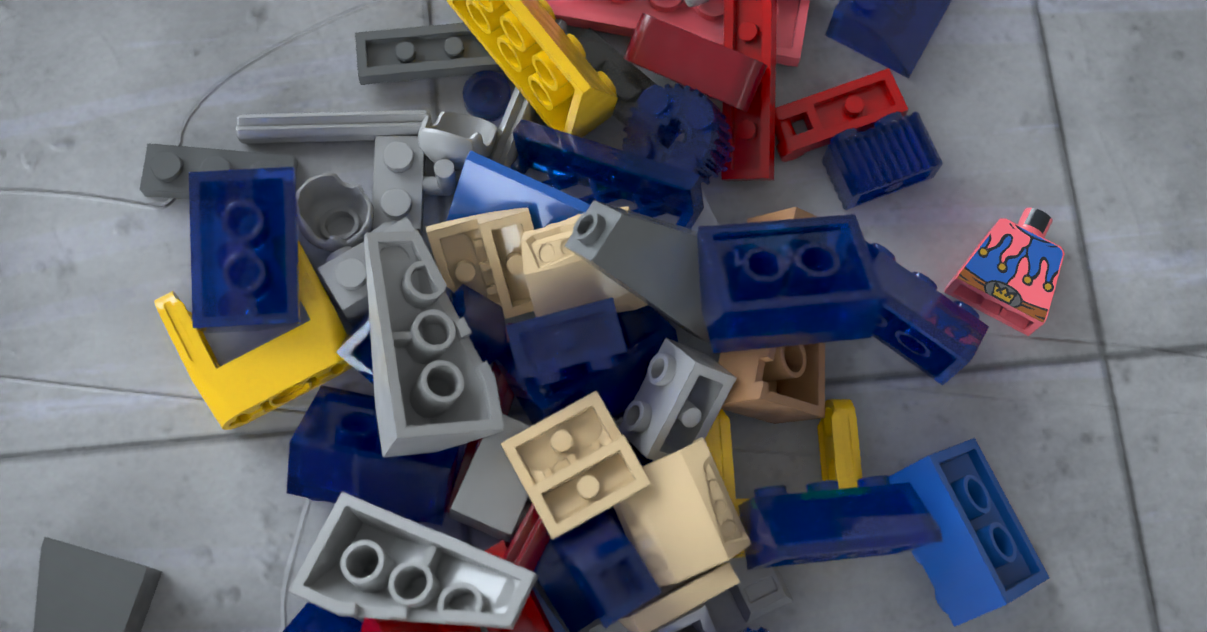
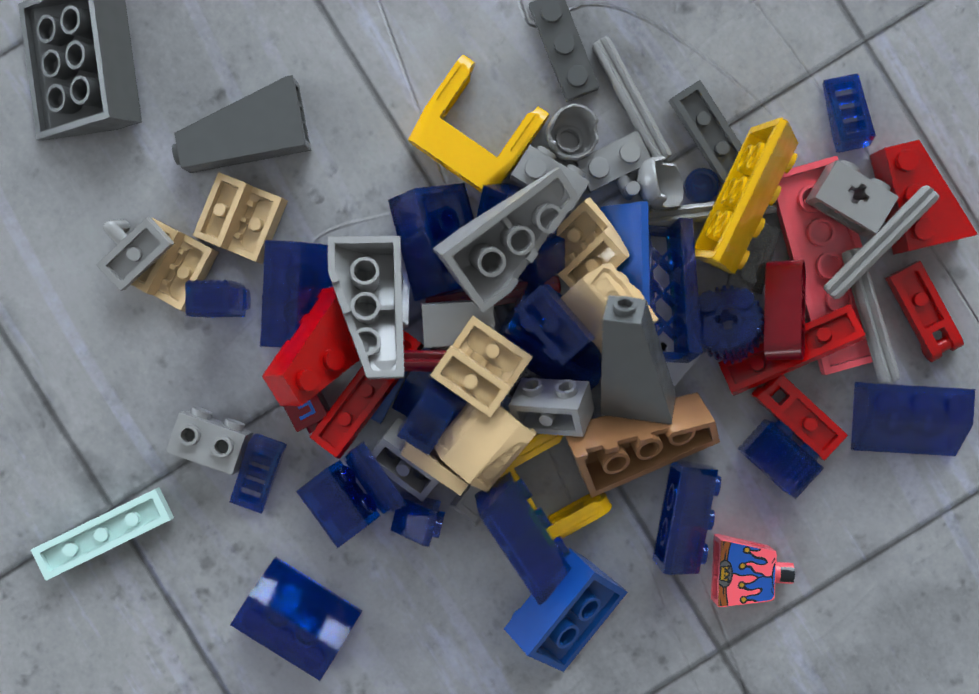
camera: 60 degrees right, 15 degrees up
(244, 249) = (518, 93): clear blue slope -> none
(787, 283) = (655, 442): clear blue slope -> none

